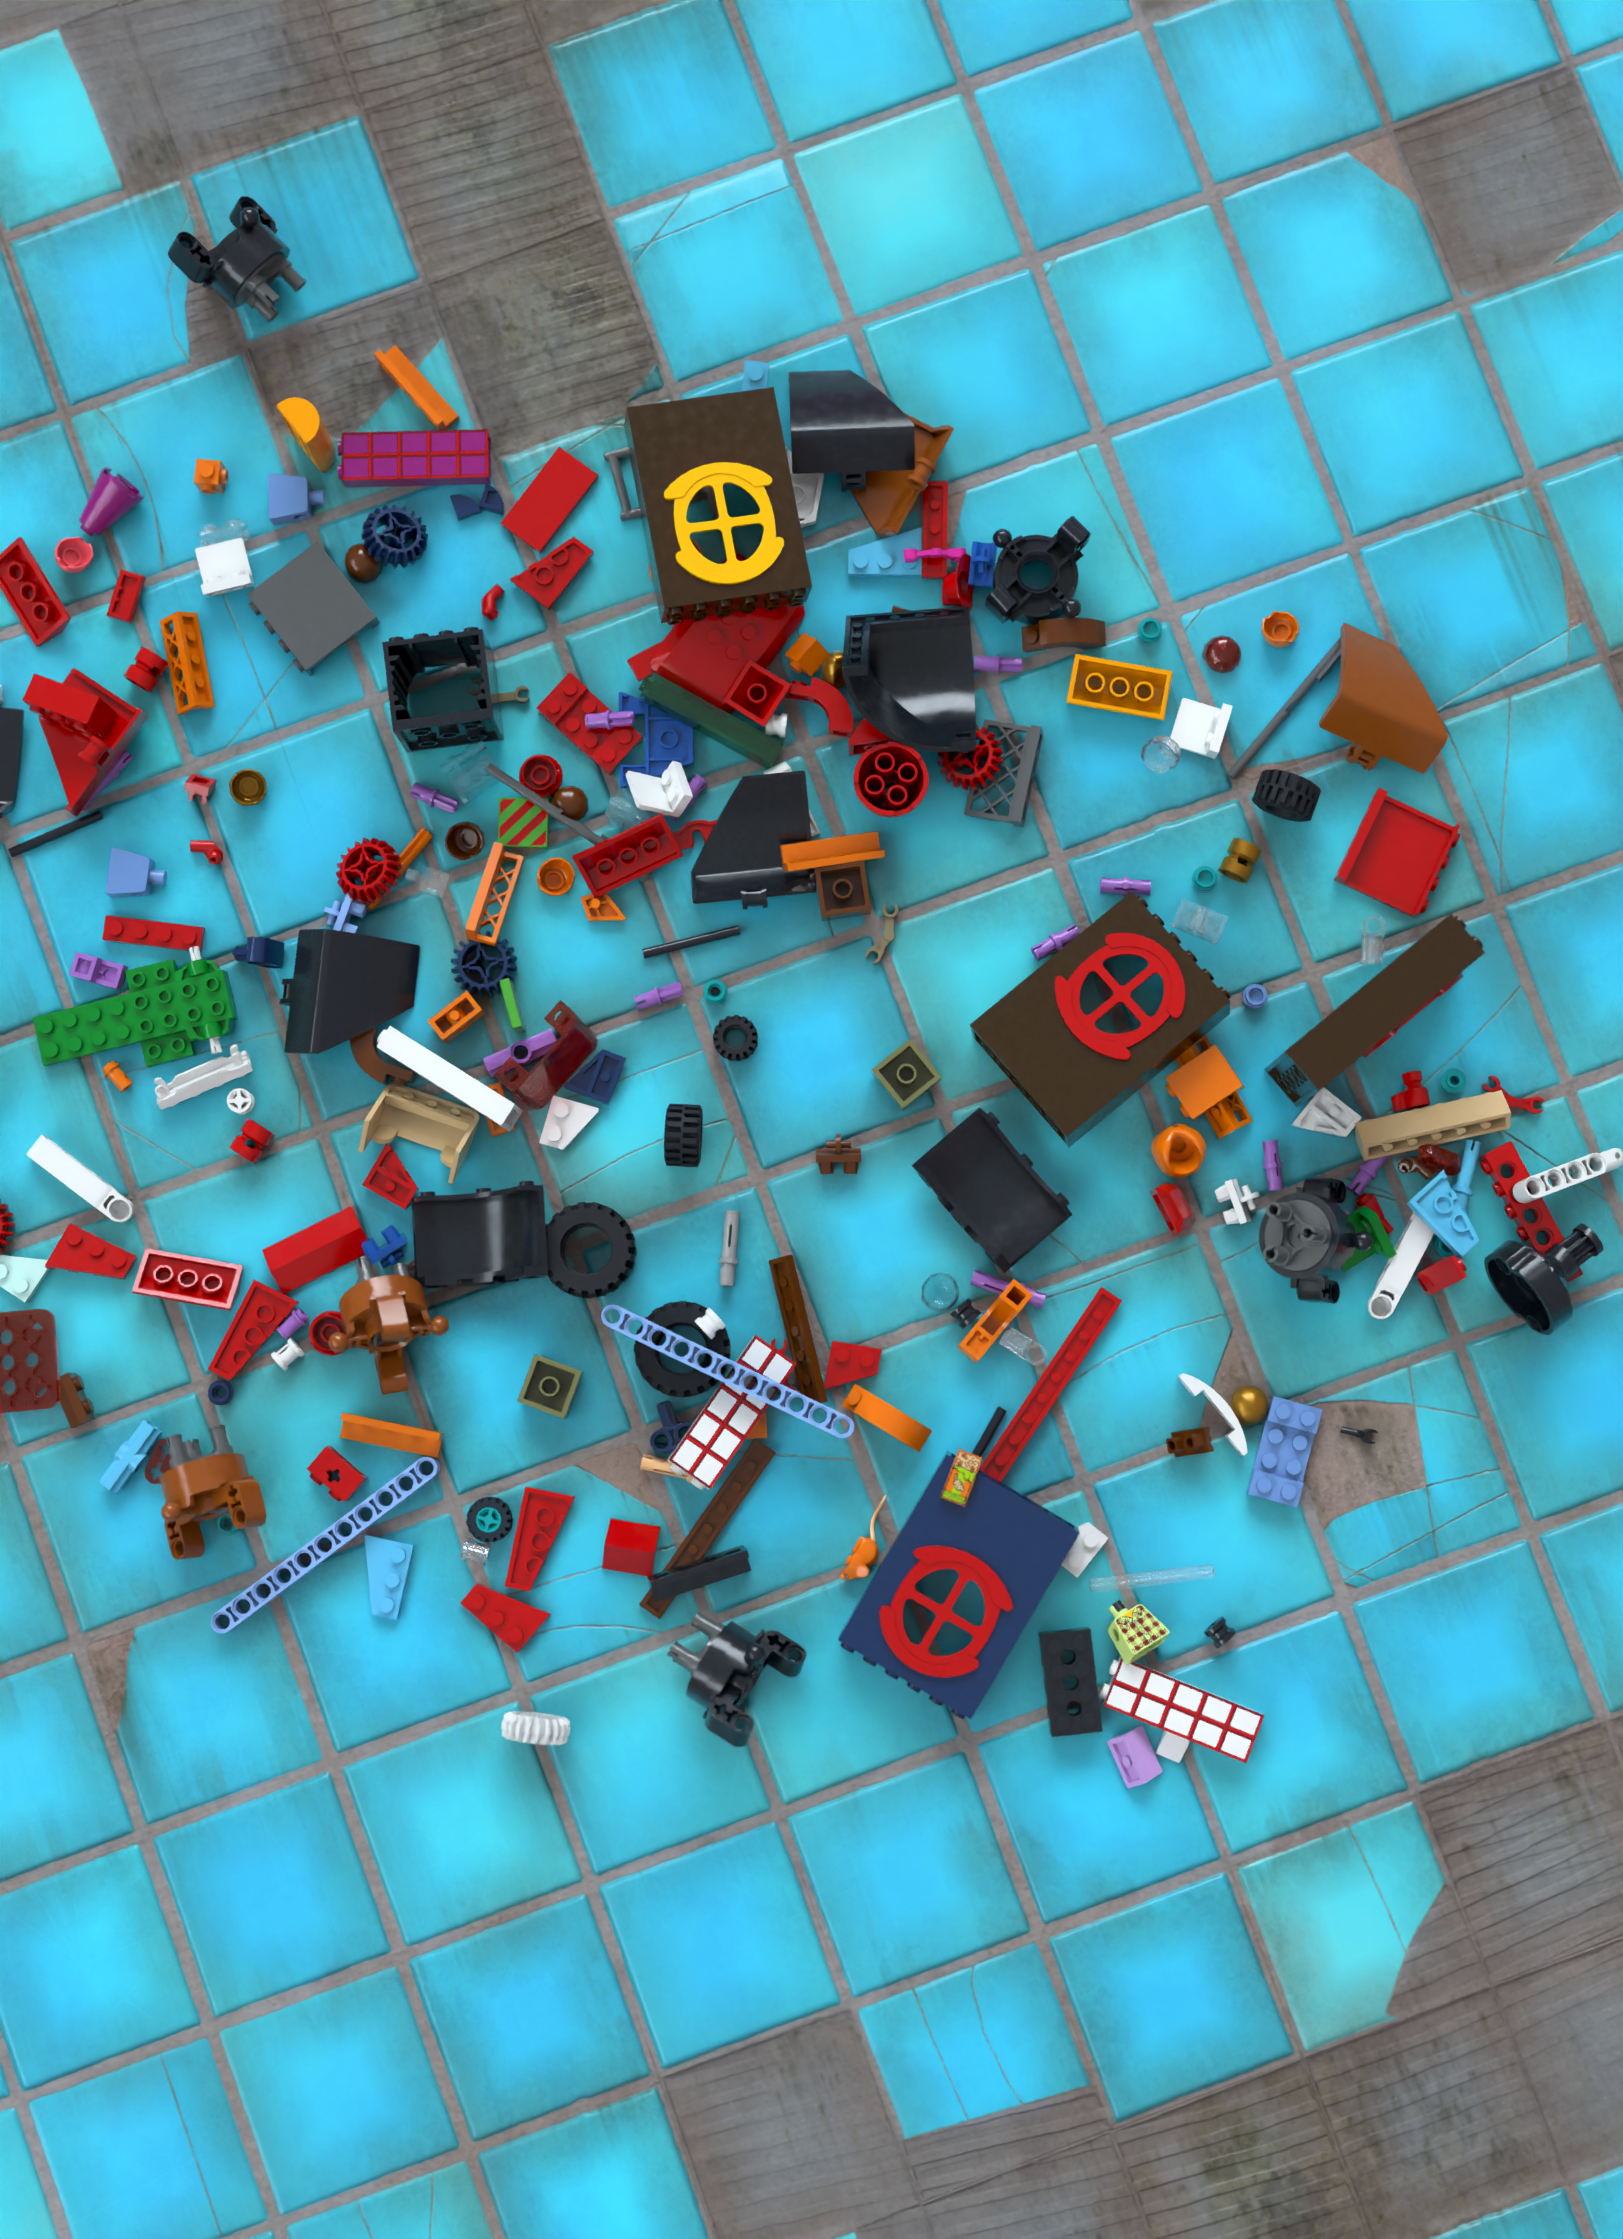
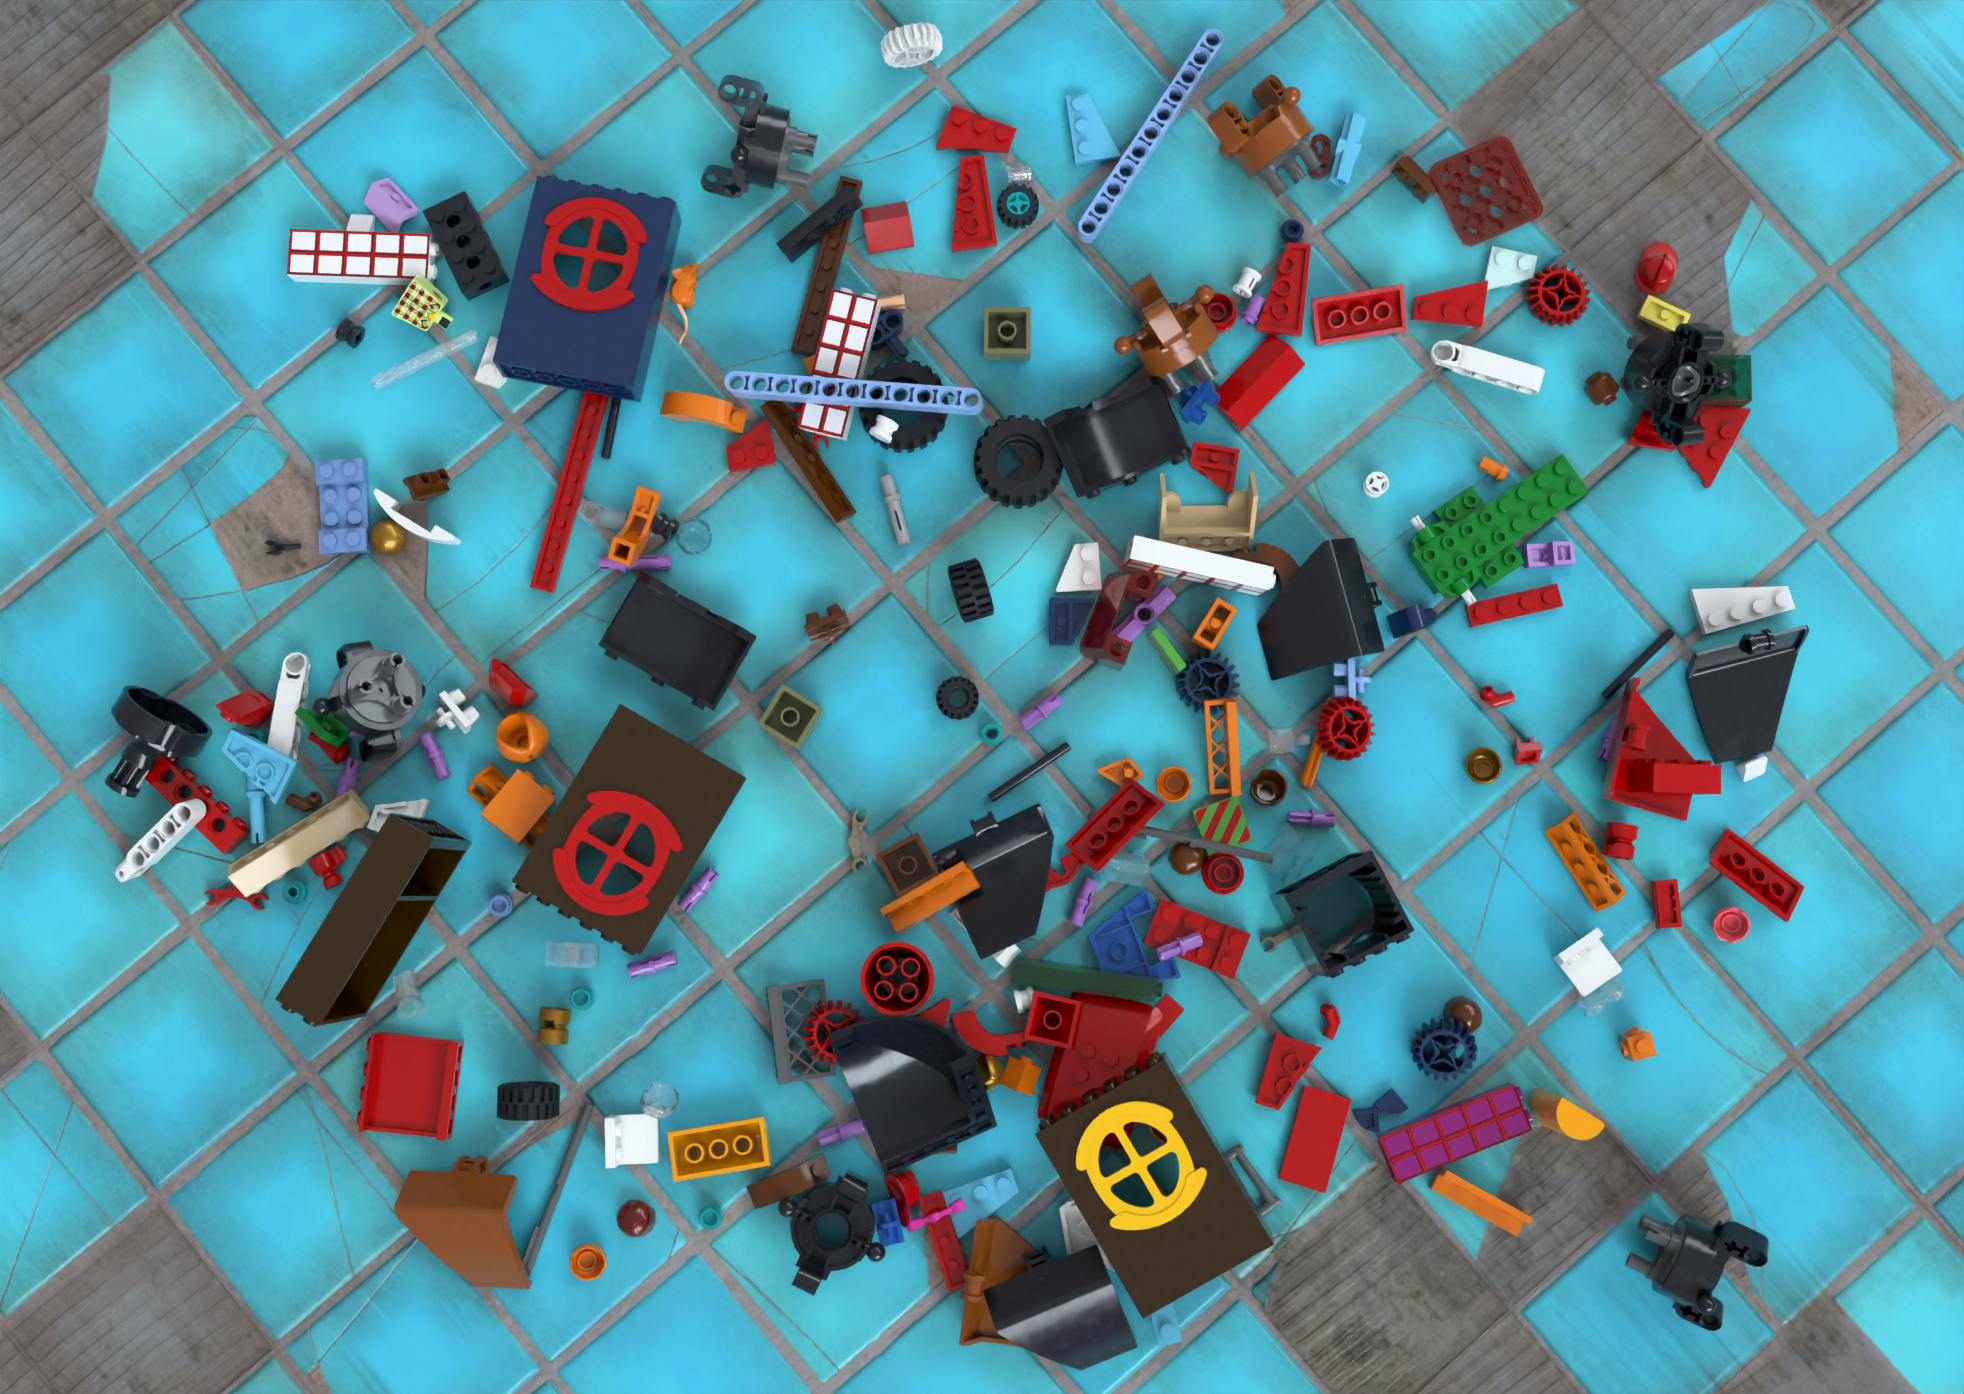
camera: 150 degrees right, 0 degrees up
(108, 502) = (1719, 986): magenta cone -> none
(132, 875) = (1554, 650): medium blue torso -> none
(202, 1078) = (1417, 492): white piece -> none
(256, 1133) = (1350, 460): red wheel -> none
(291, 498) = (1553, 1051): medium blue torso -> none
(311, 607) = (1493, 954): dark grey panel -> none
(350, 1476) = (1169, 207): red brick -> none
(391, 1435) = (1130, 248): orange fence -> none
(661, 795) = (1107, 893): white bracket -> none
(961, 1477) = (612, 370): tile -> none
(1438, 1159) = (284, 814): clear red beam -> none

